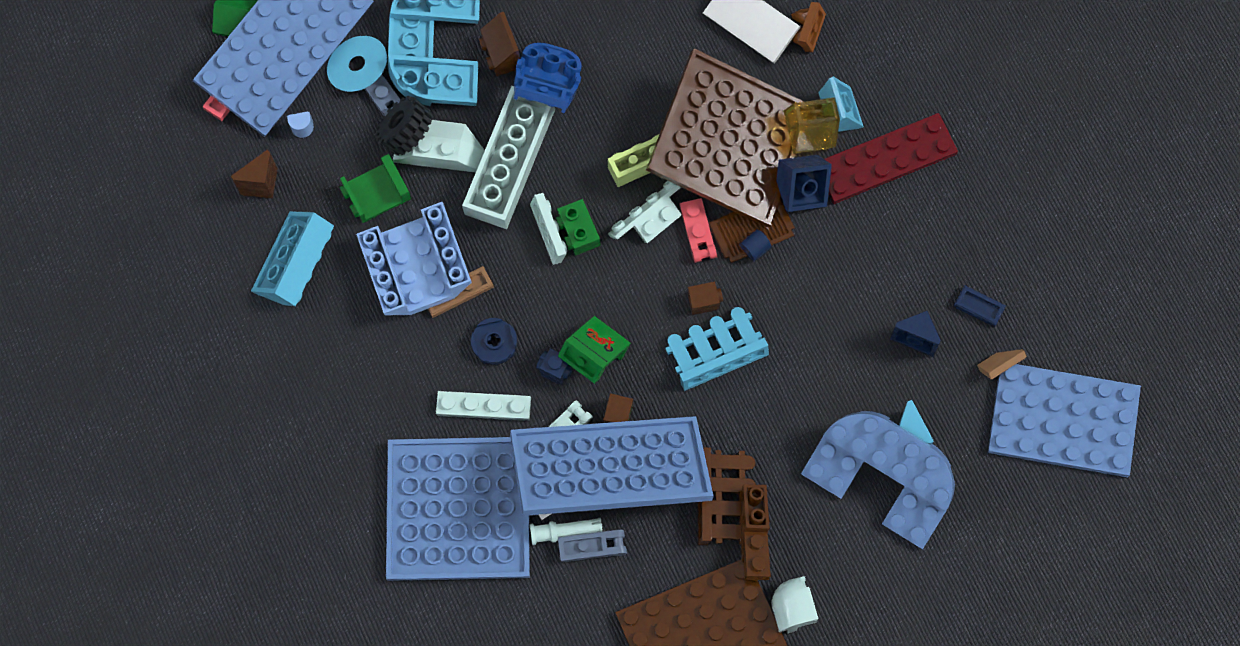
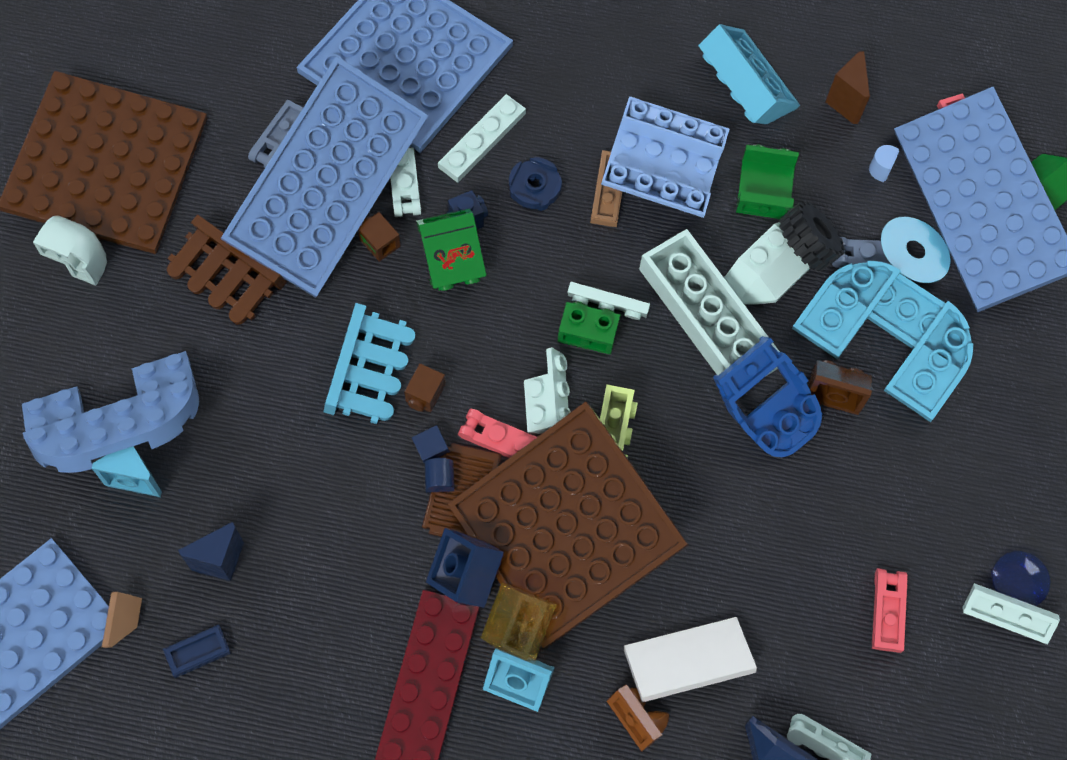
camera: 120 degrees right, 5 degrees down
(737, 267) = (430, 444): none -> dark blue tile
(755, 532) = (164, 264): reddish brown slope -> none

